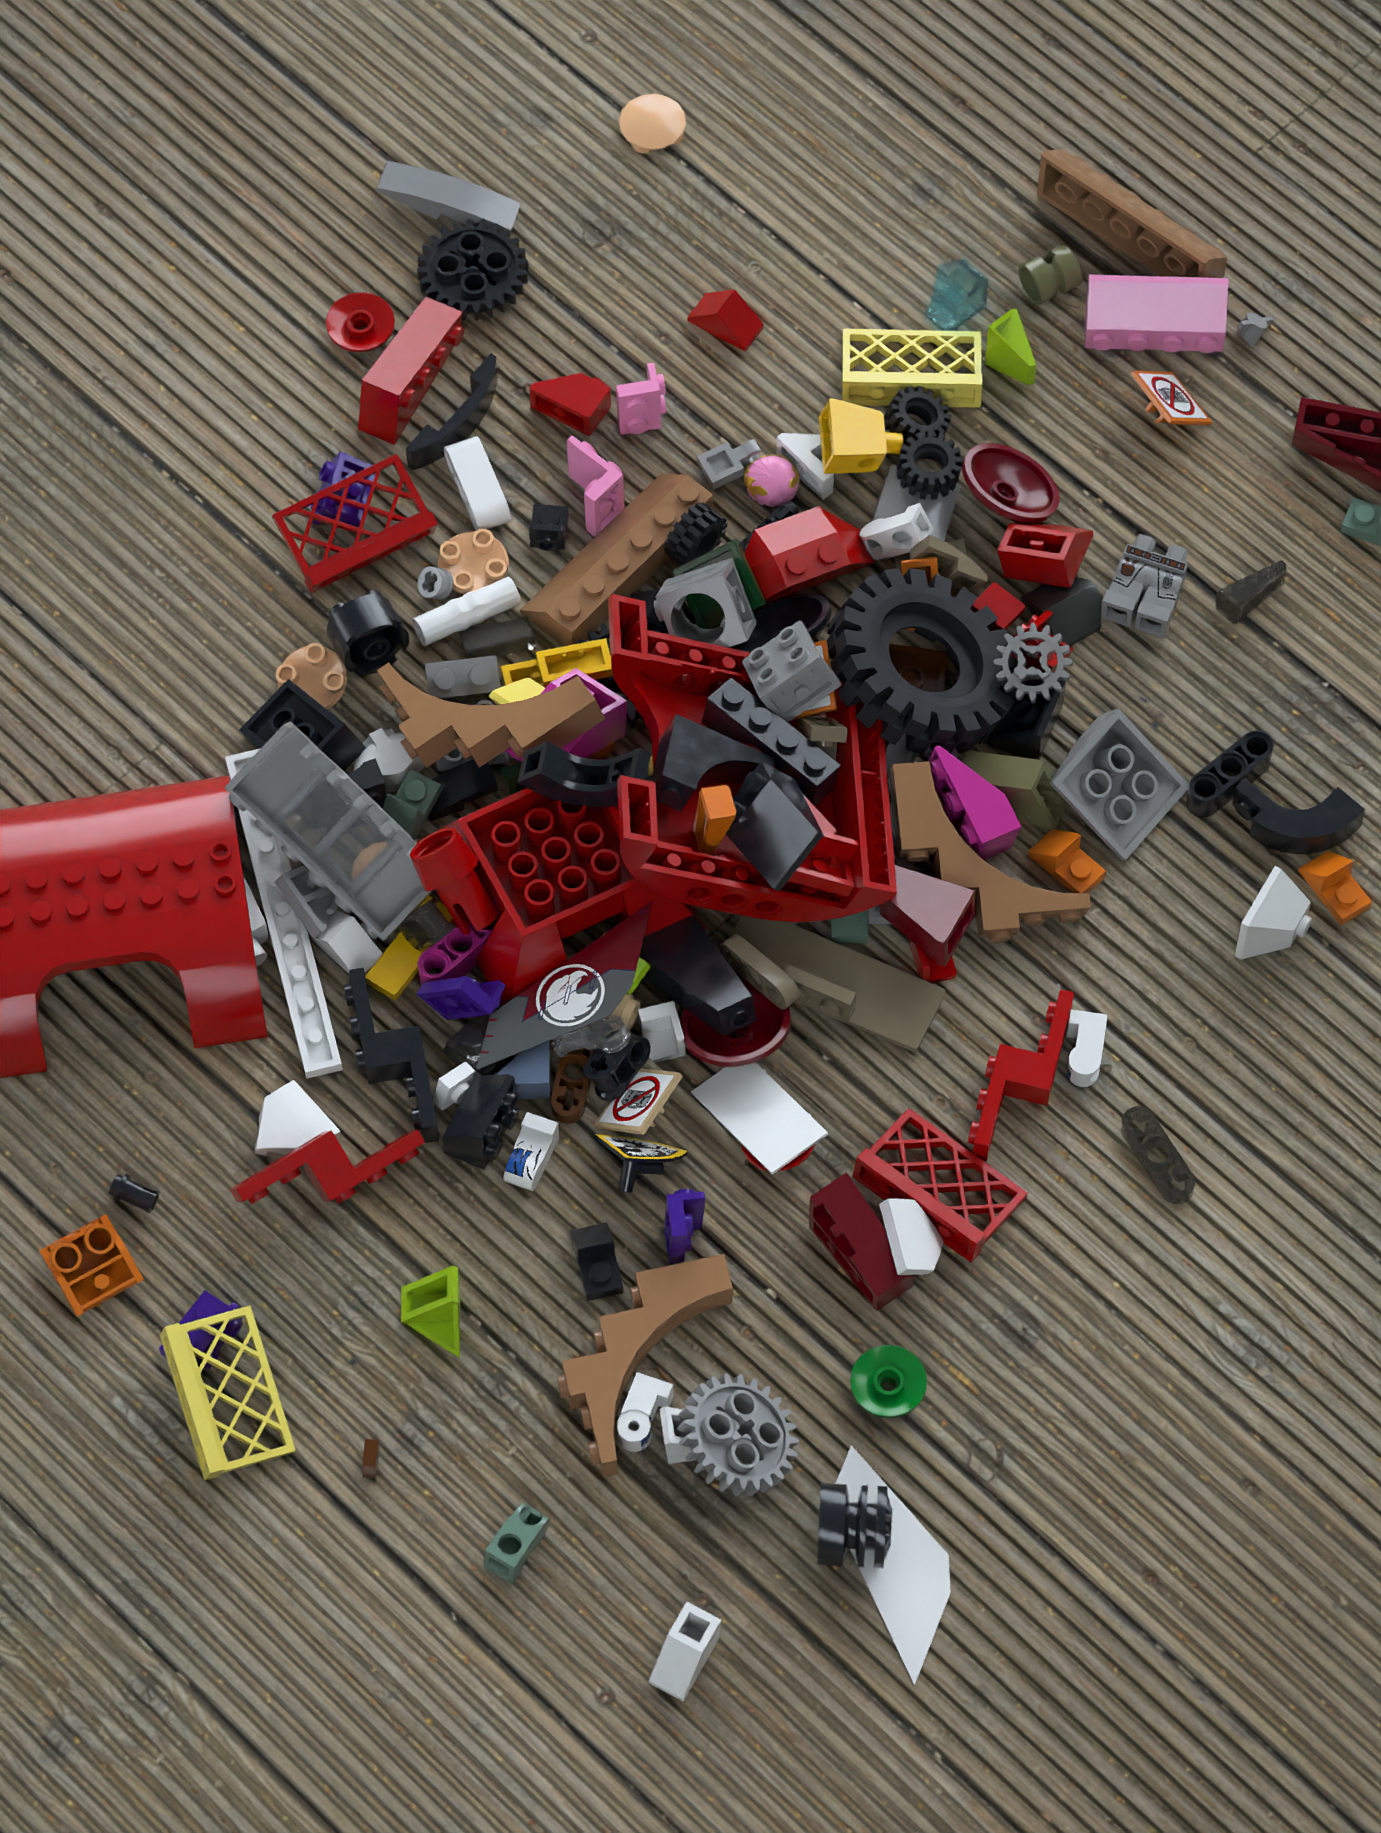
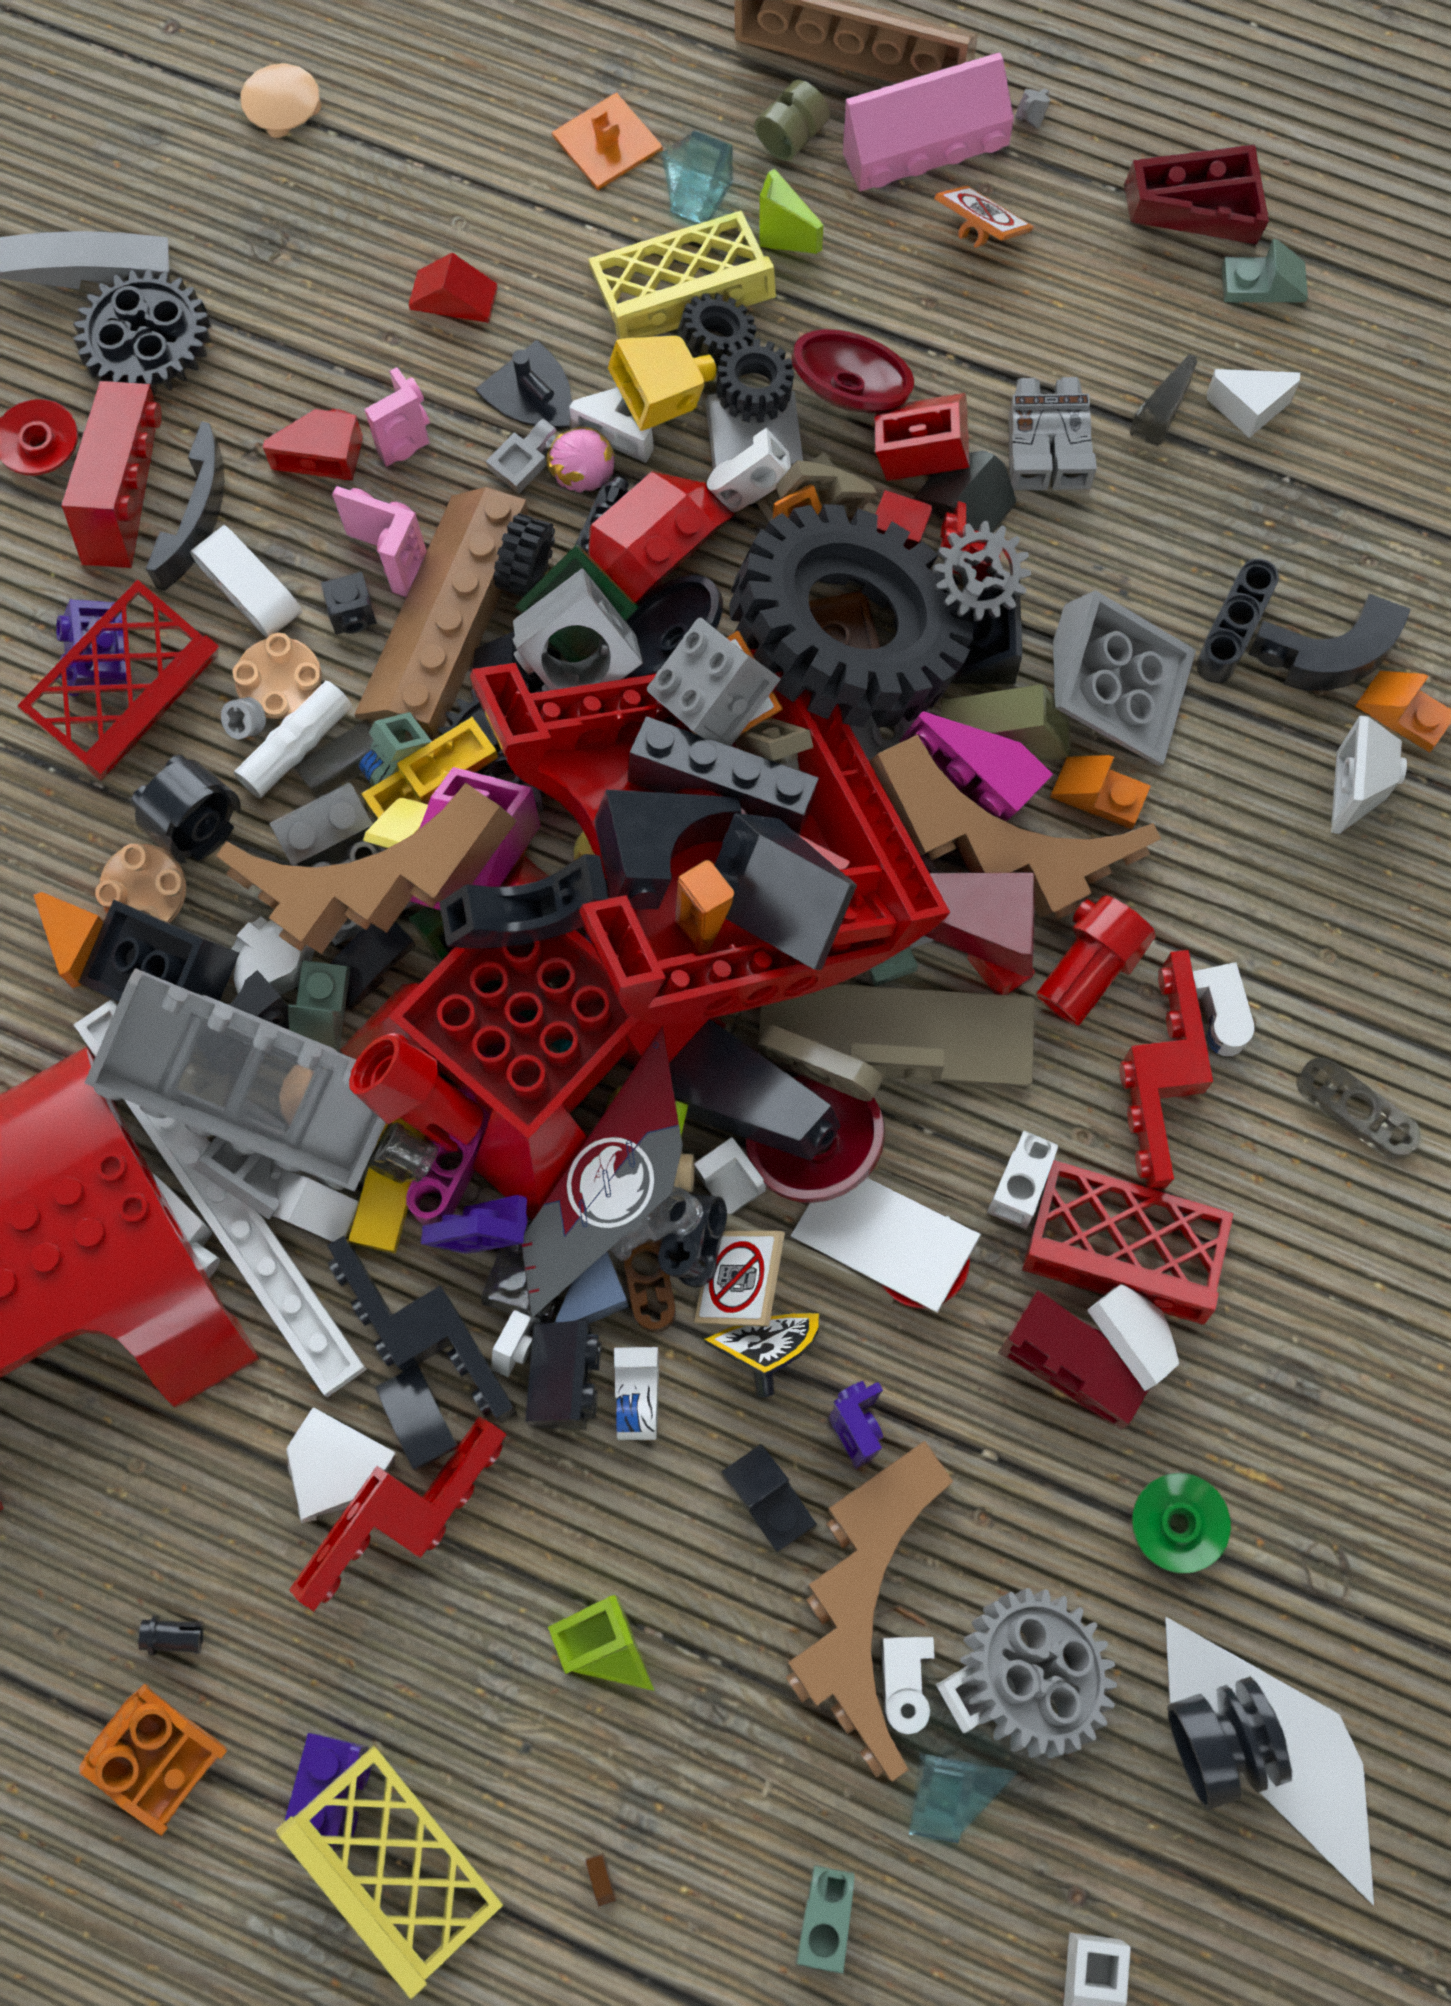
camera: 20 degrees left, 10 degrees up
(247, 692) = (69, 933): none -> orange slope
(365, 1114) = (416, 1417): none -> black slope
(537, 638) = (390, 746): none -> sand green leg
(645, 1494) = (952, 1795): none -> clear light blue slope
(756, 413) = (530, 388): none -> shield
(878, 1111) = (1023, 1180): none -> white leg
(898, 241) = (607, 141): none -> orange piece
(1016, 967) = (1108, 942): none -> red piece
(1323, 611) = (1251, 396): none -> white slope

